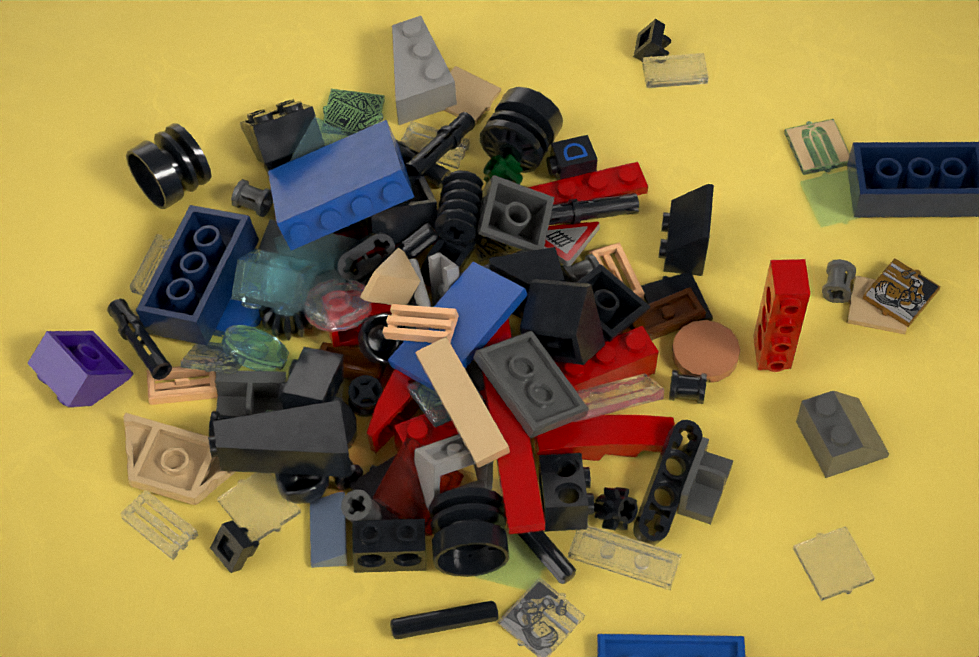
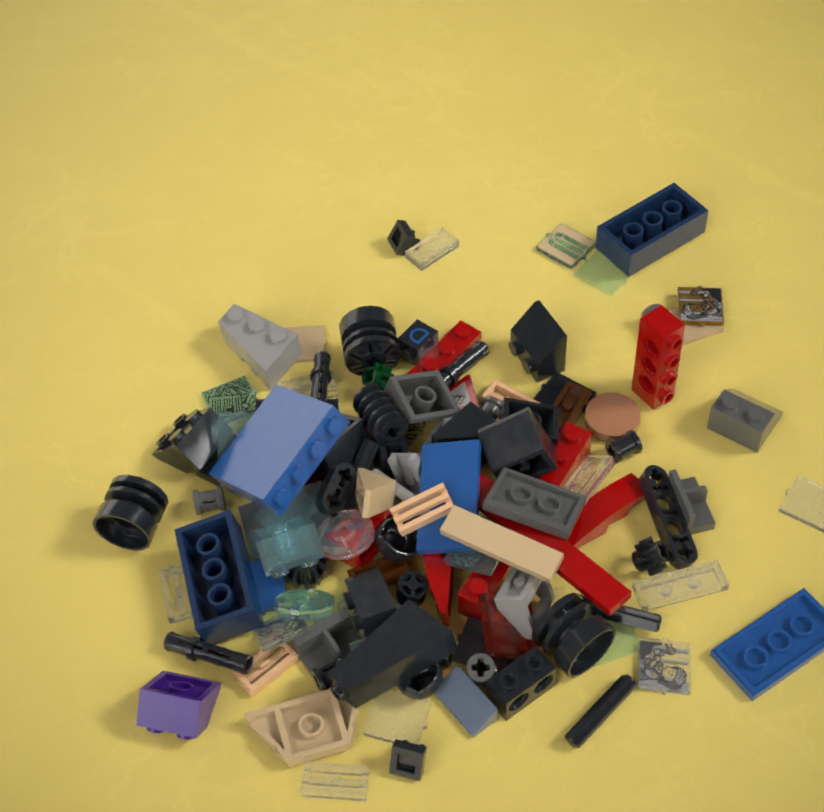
camera: 30 degrees left, 5 degrees down
(564, 492) = (614, 560): black brick -> none

